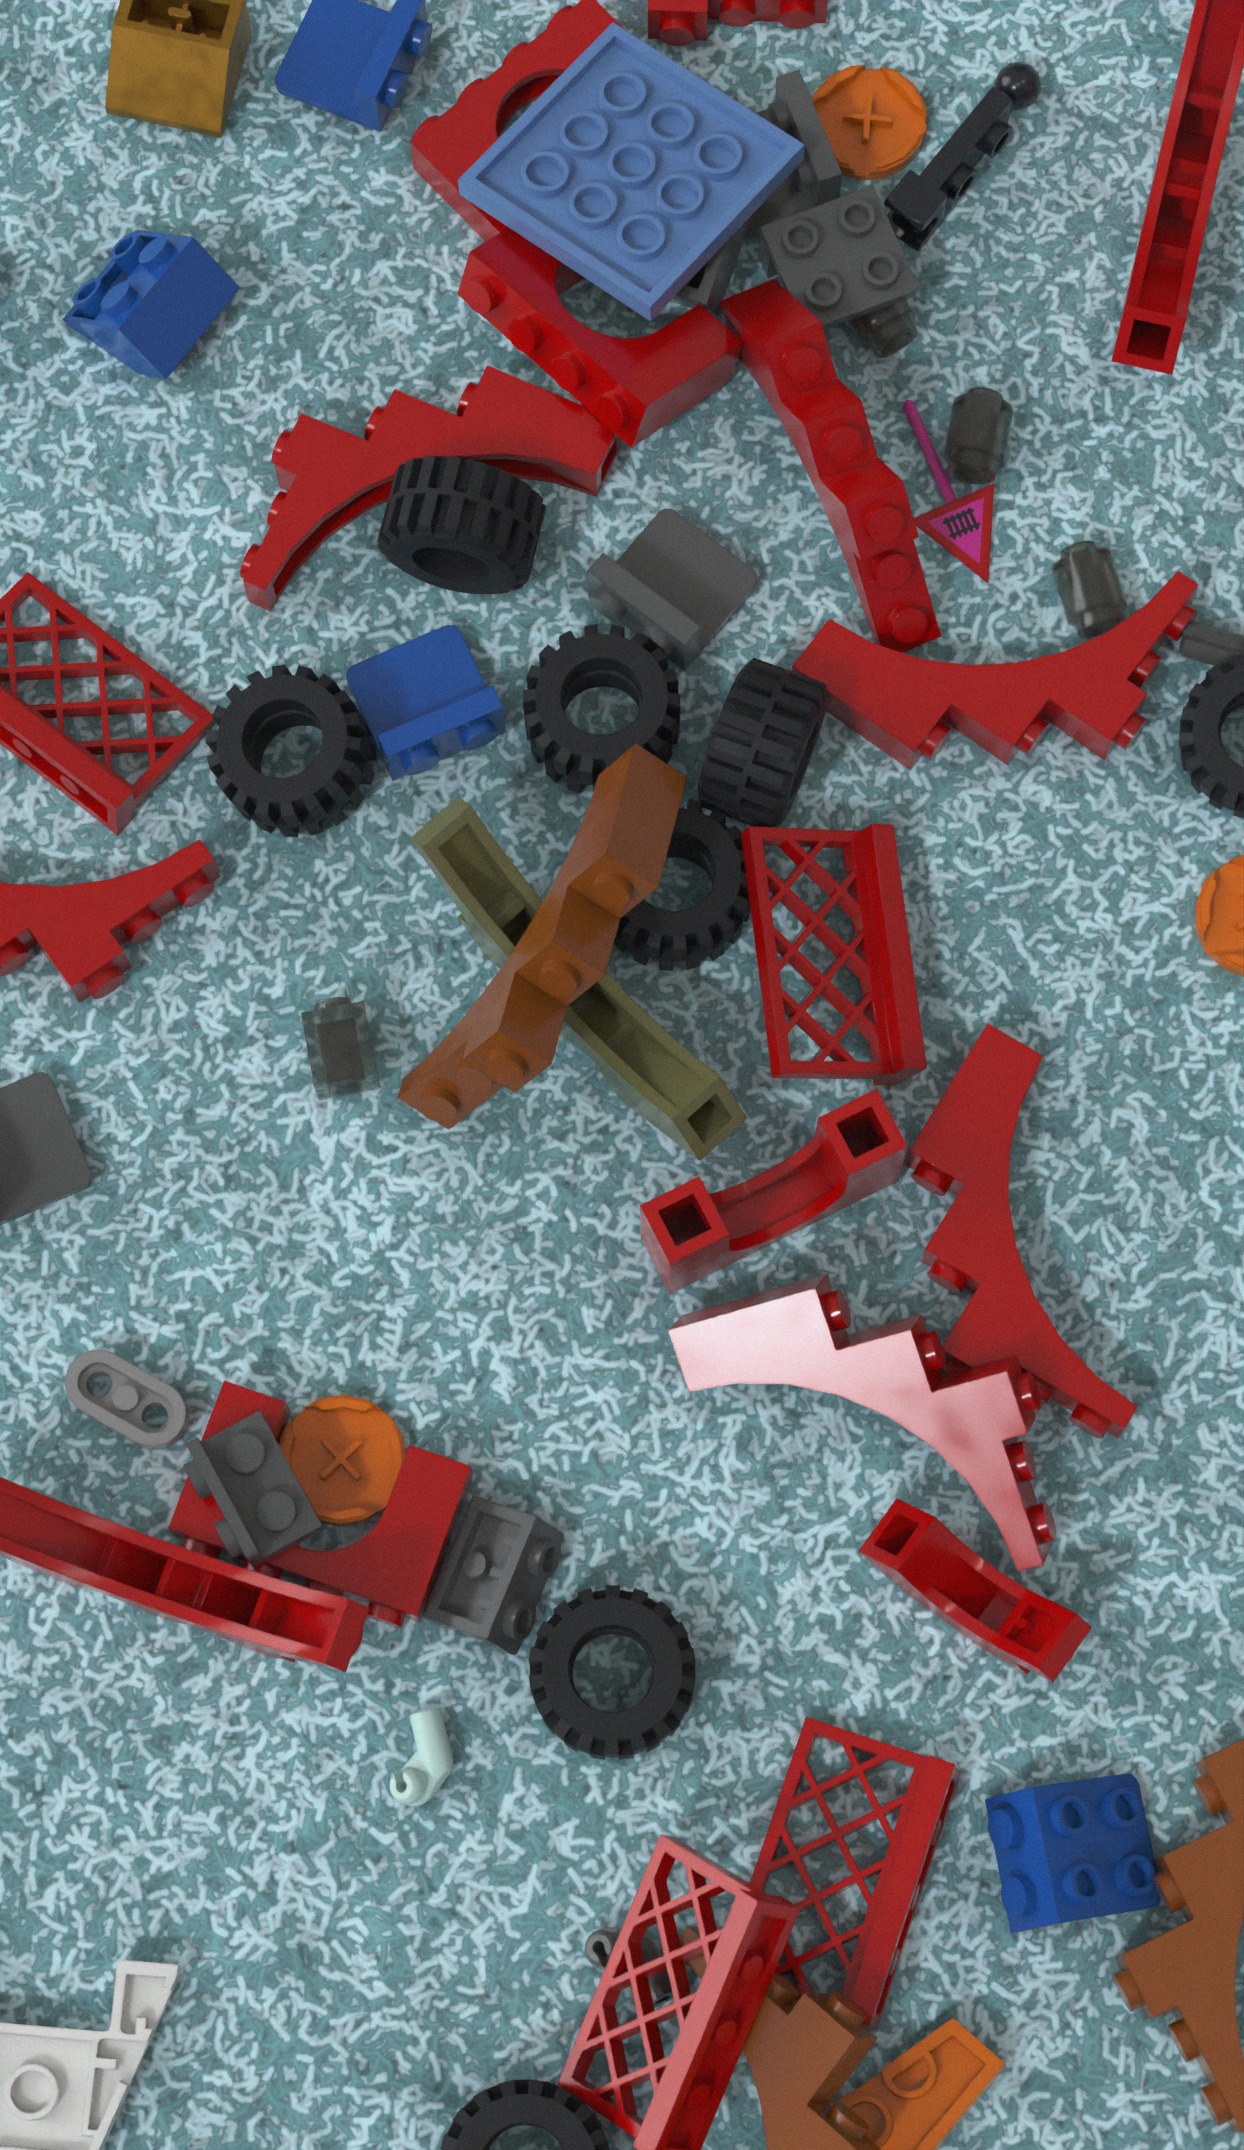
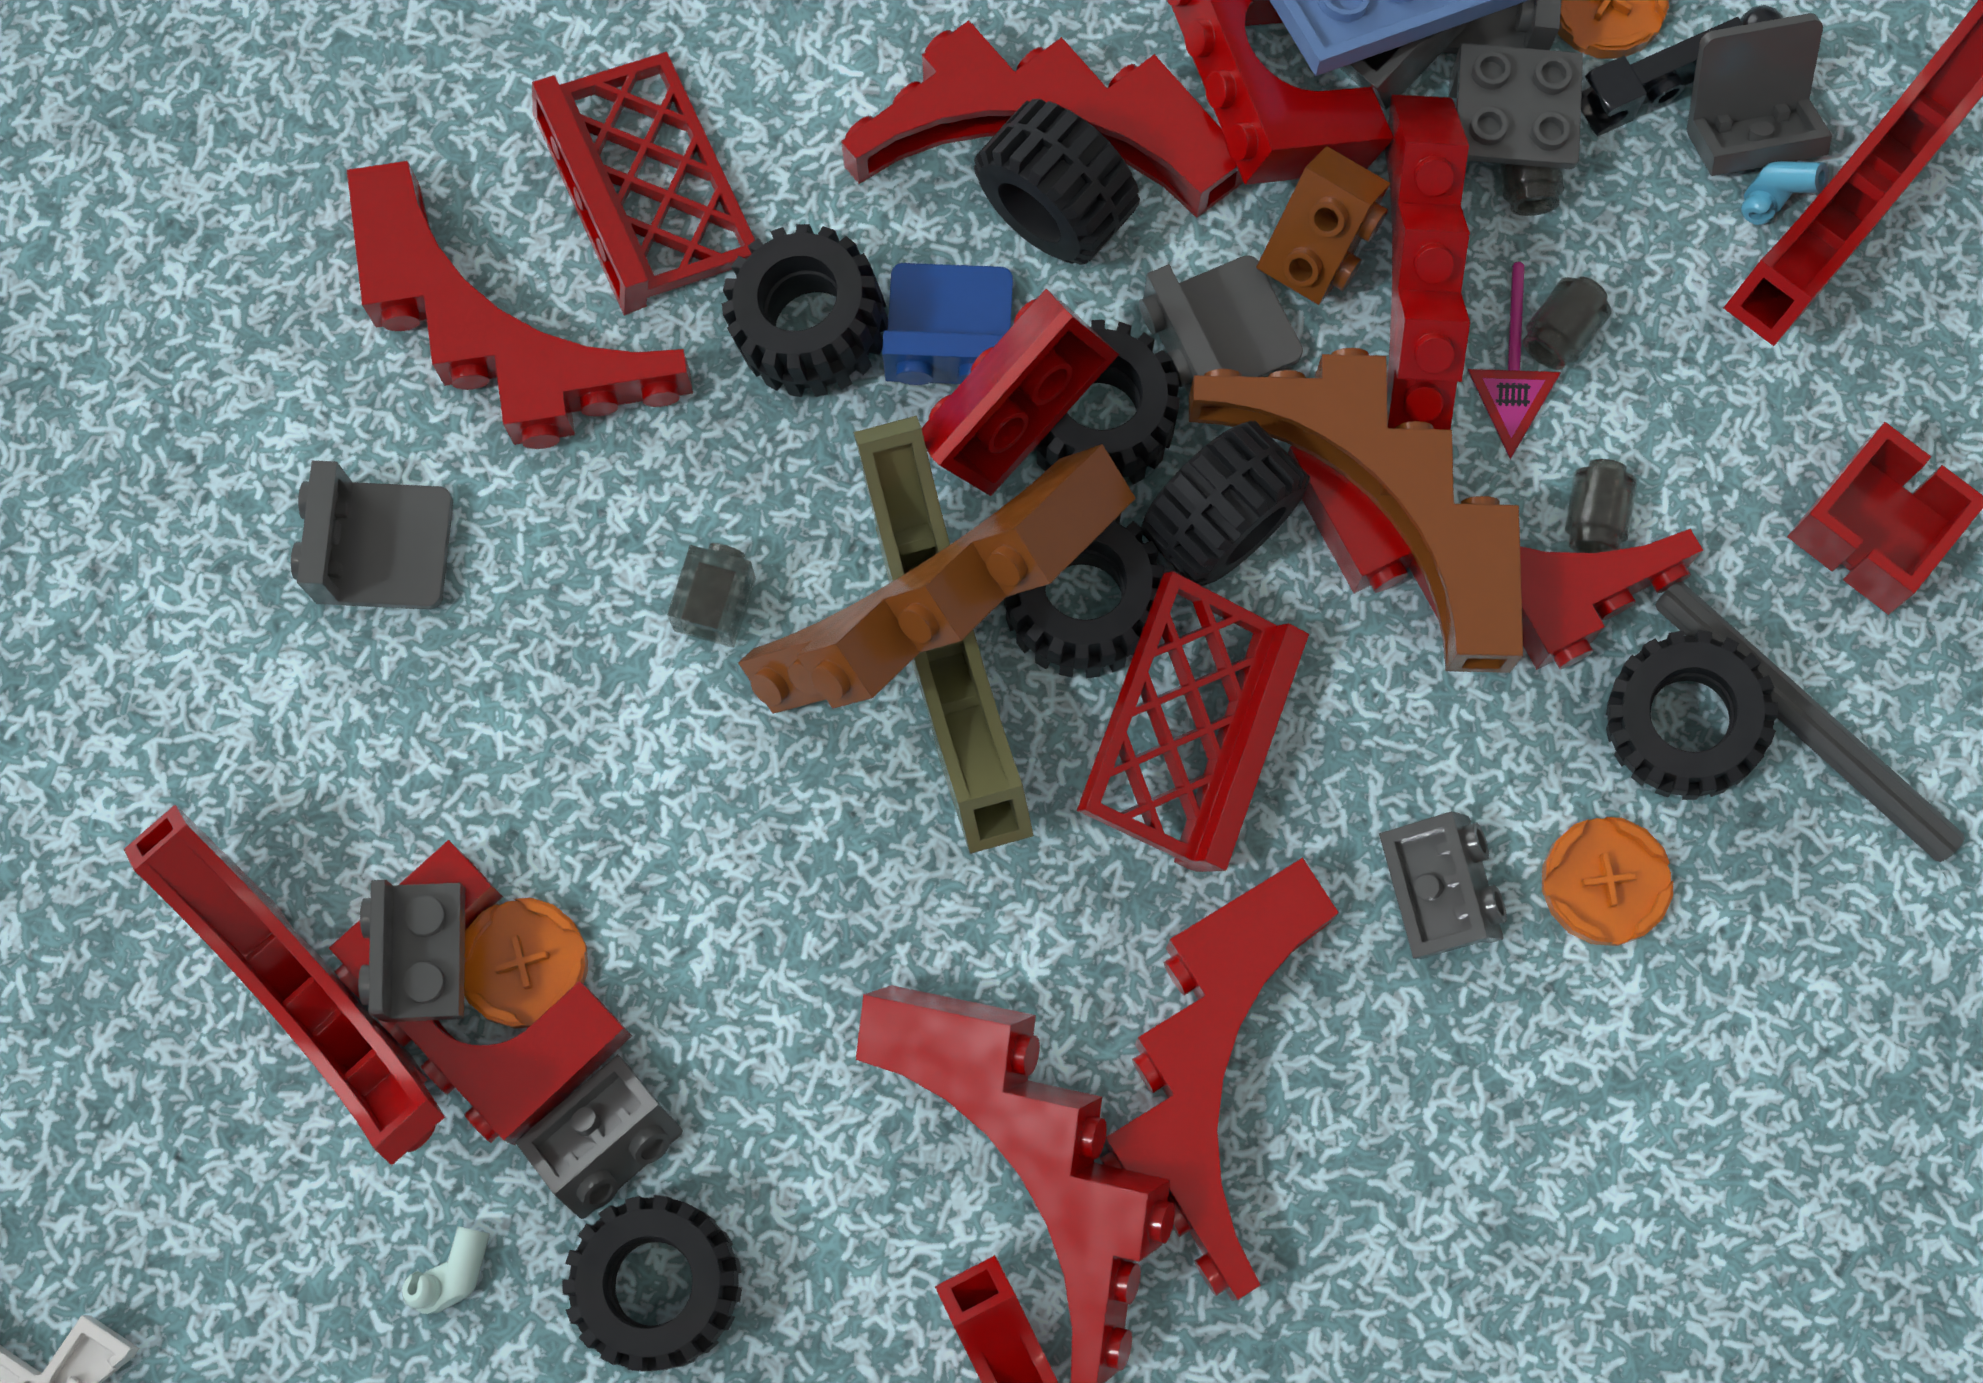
camera: 25 degrees right, 0 degrees up
(128, 1400) = (363, 816): light grey plate -> none
(530, 733) = (1016, 393): none -> red slope
(702, 1232) = (1100, 921): red arch -> none
(721, 452) = (1323, 225): none -> dark orange brick
(910, 639) = (1407, 471): none -> dark orange arch
(1042, 152) = (1755, 95): none -> dark grey bracket
(1101, 221) = (1776, 185): none -> medium azure arm
(1118, 988) = (1443, 884): none -> dark grey bracket

